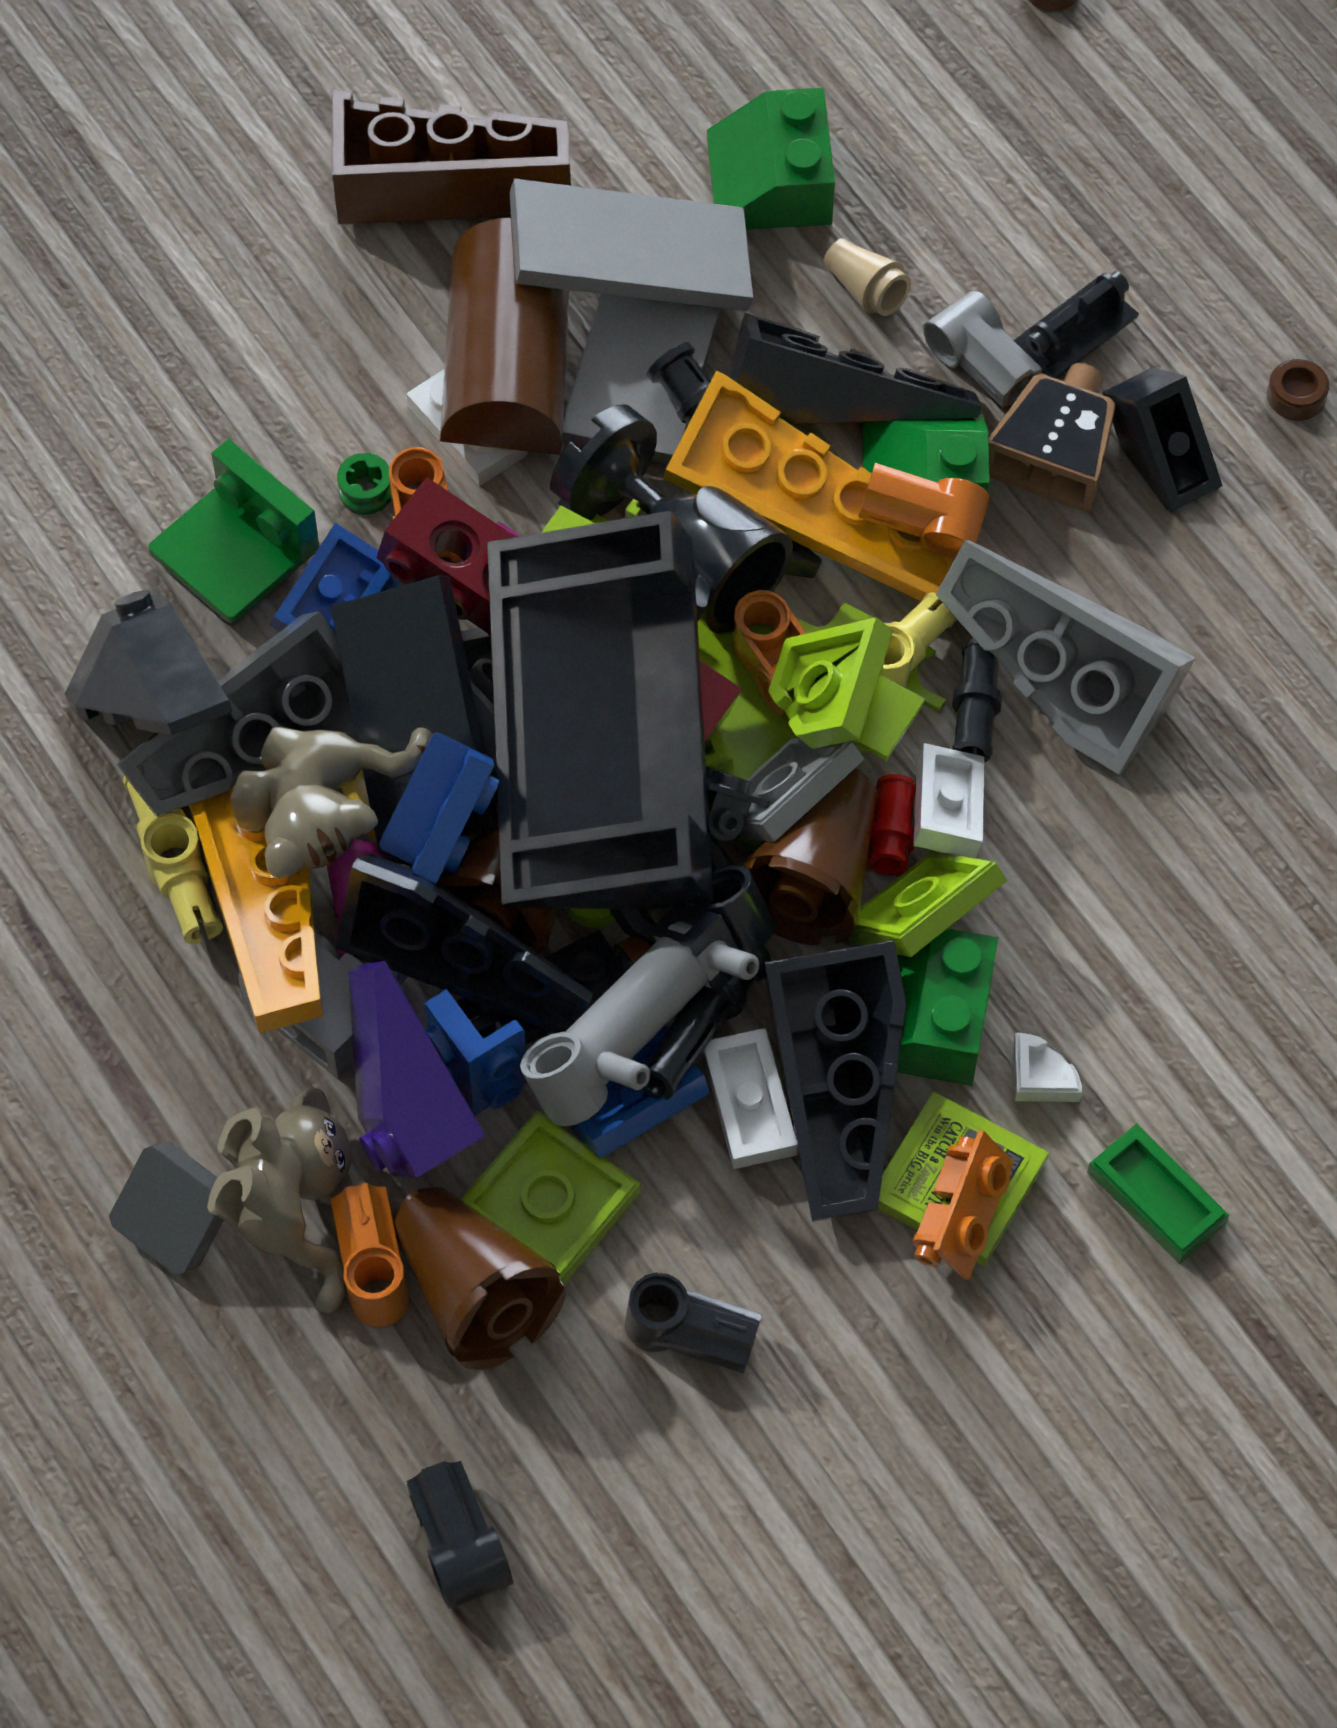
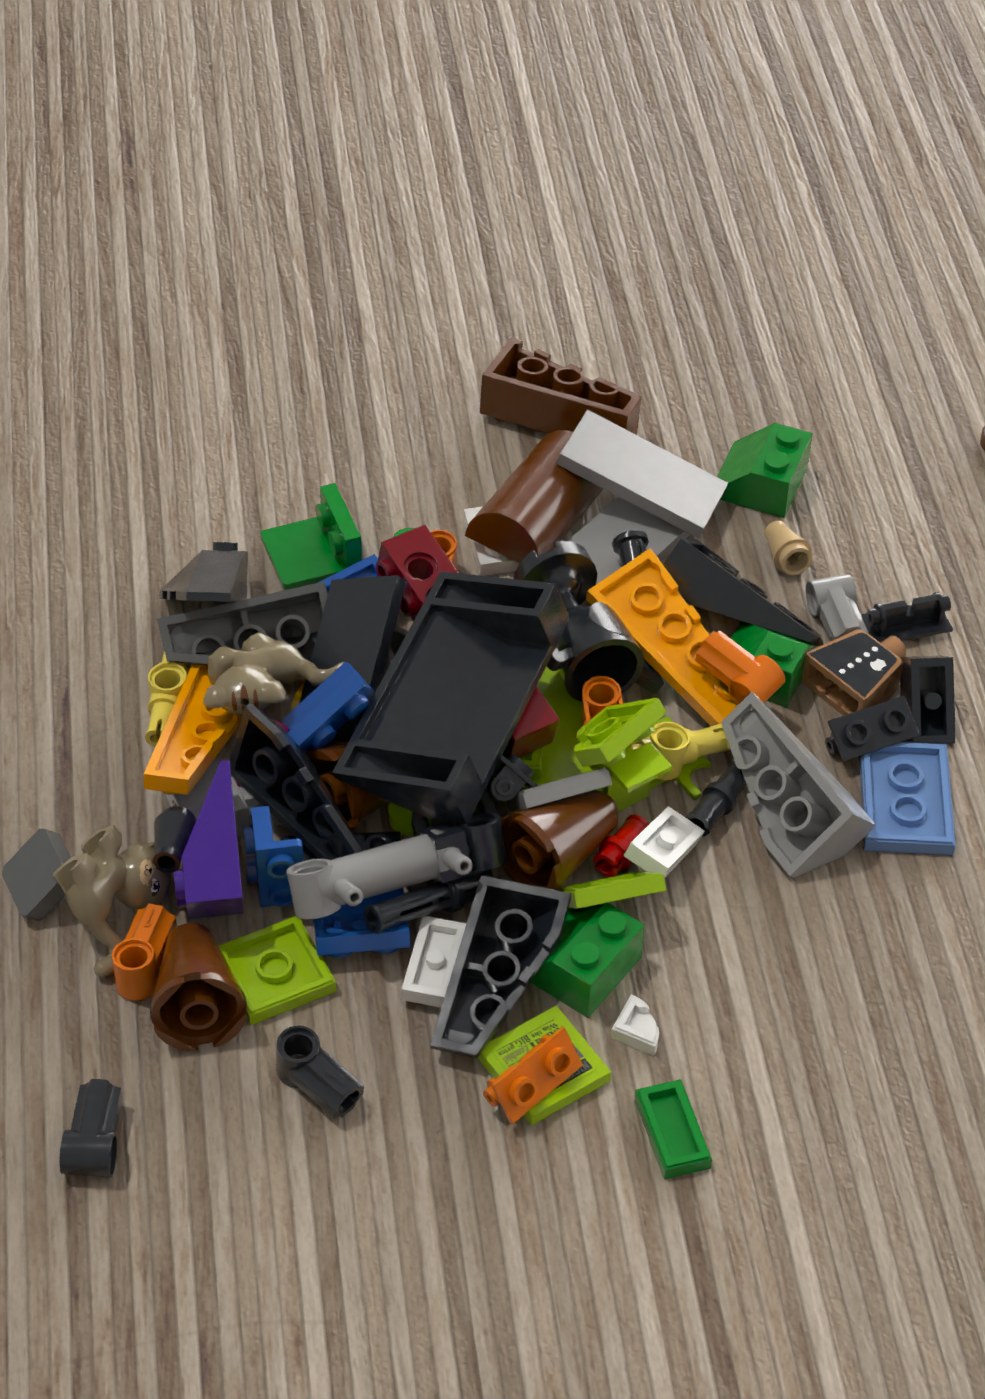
camera: 25 degrees right, 15 degrees down
(330, 1081) = (171, 836): none -> black cone
(1119, 517) = (871, 729): none -> black hinge
(1203, 591) = (908, 799): none -> medium blue tile

